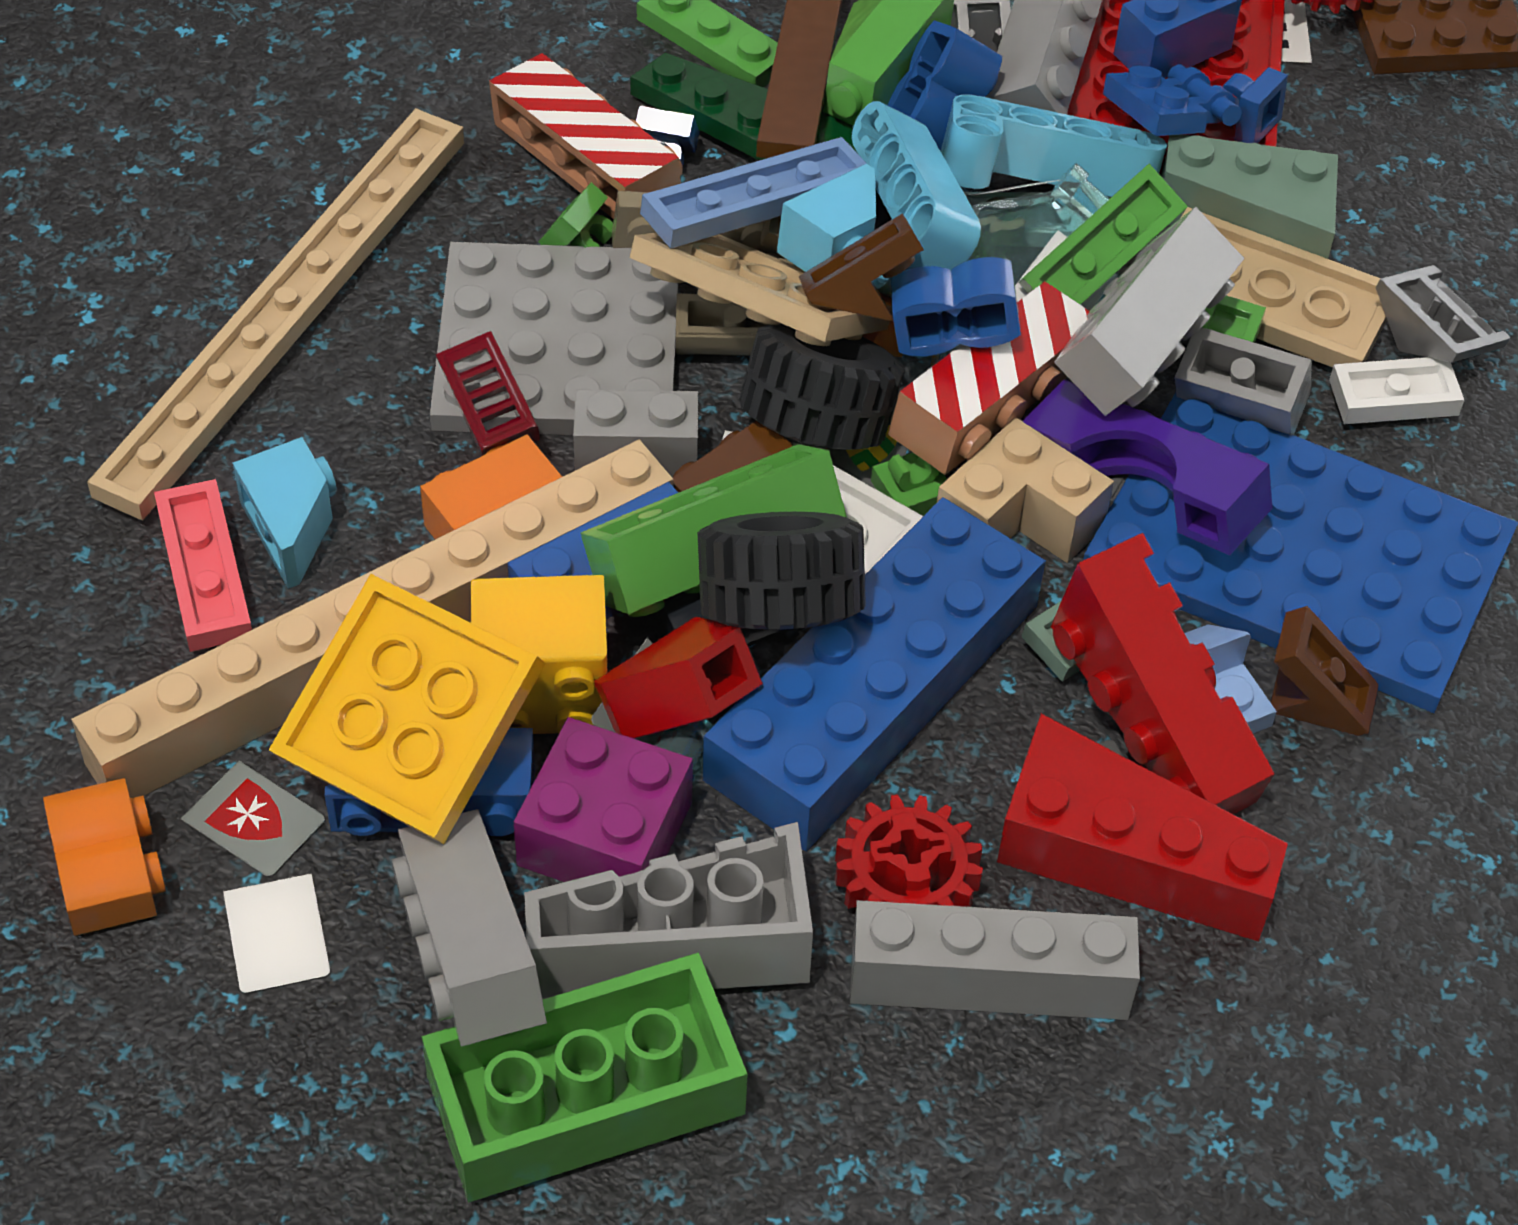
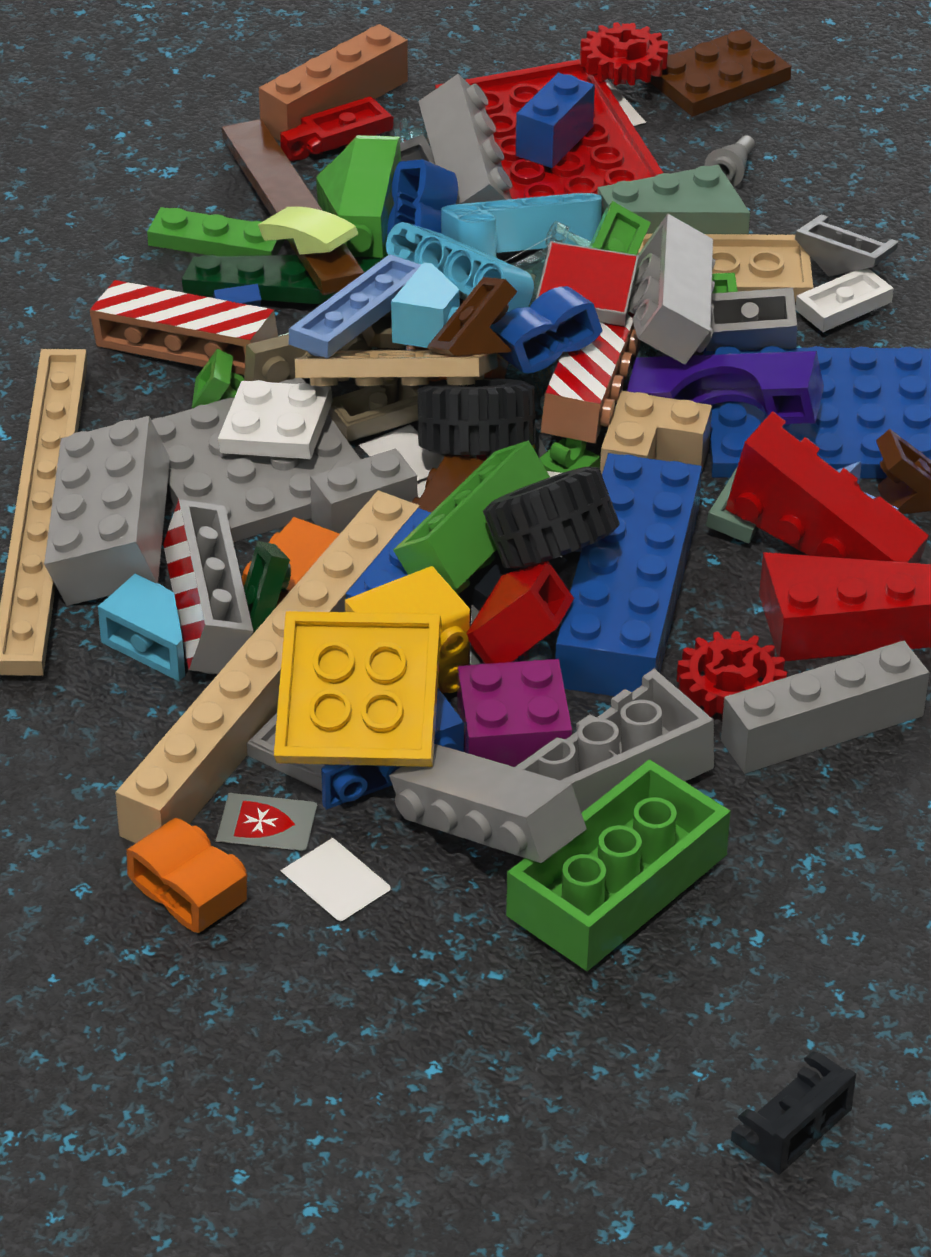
camera: 25 degrees left, 10 degrees down
(203, 564) = (114, 683): coral plate -> none
(334, 342) = (107, 509): none -> light grey brick
(374, 482) = (206, 585): none -> light grey brick
(428, 507) = (265, 580): none -> dark green plate
(502, 433) = (267, 502): dark red slope -> none
(596, 298) = (275, 419): none -> white plate
(718, 396) = (406, 442): none -> white sticker
(784, 68) = (311, 229): none -> yellowish green slope
(1060, 259) = (594, 273): none -> red tile
(1172, 104) = (583, 166): blue plate -> none
(1260, 103) = (642, 149): blue tile -> none
(1369, 153) = (732, 158): none -> light grey cone

